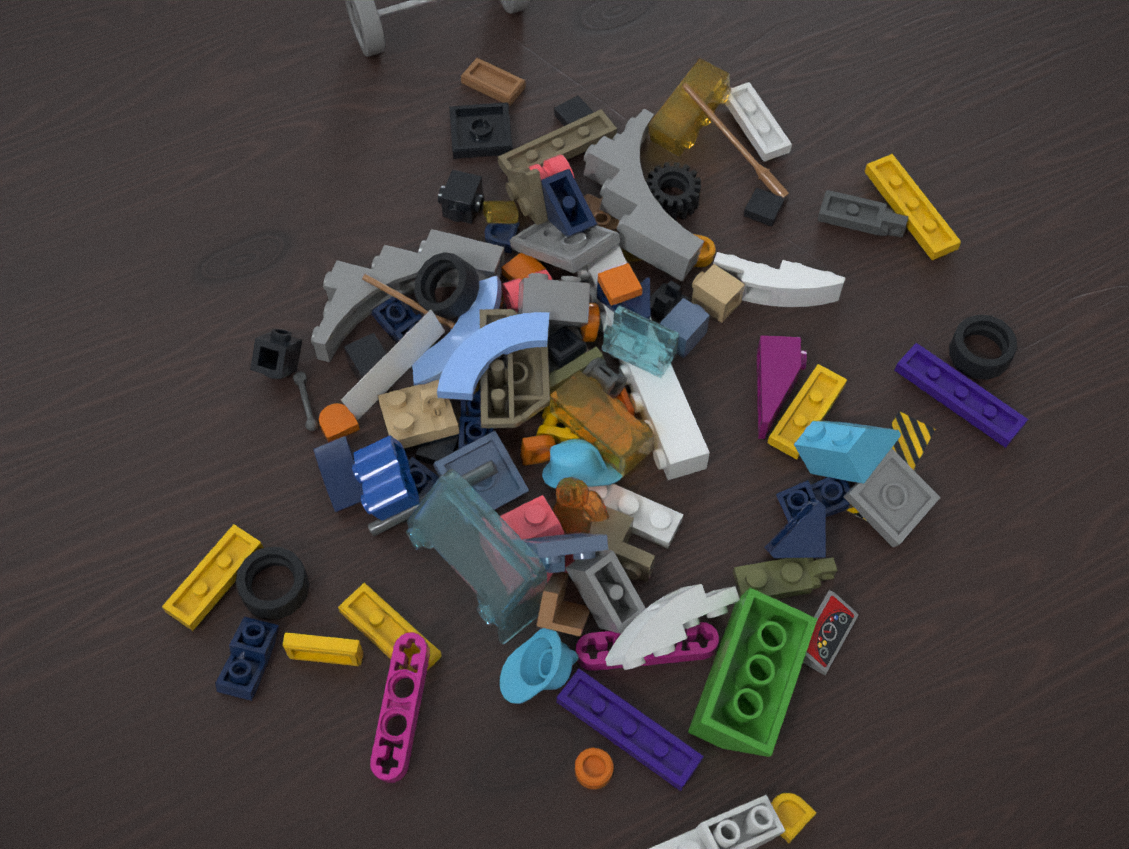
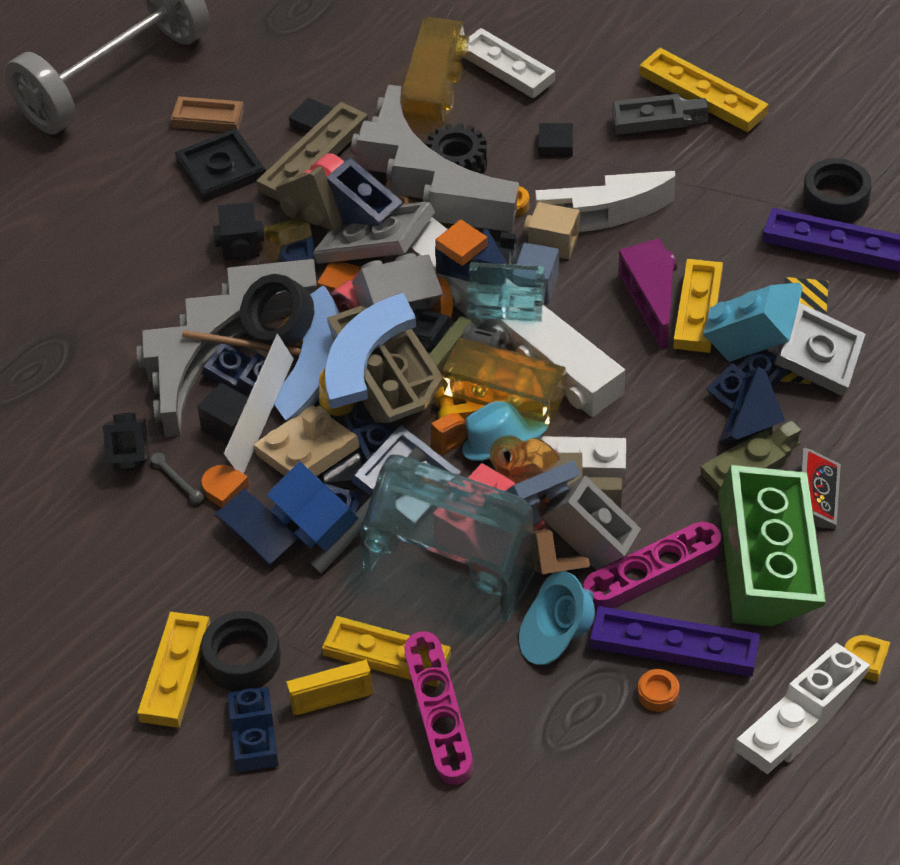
camera: 20 degrees left, 10 degrees down
(664, 623) = (666, 527): white slope -> none
(763, 173) = (540, 107): medium nougat piece -> none

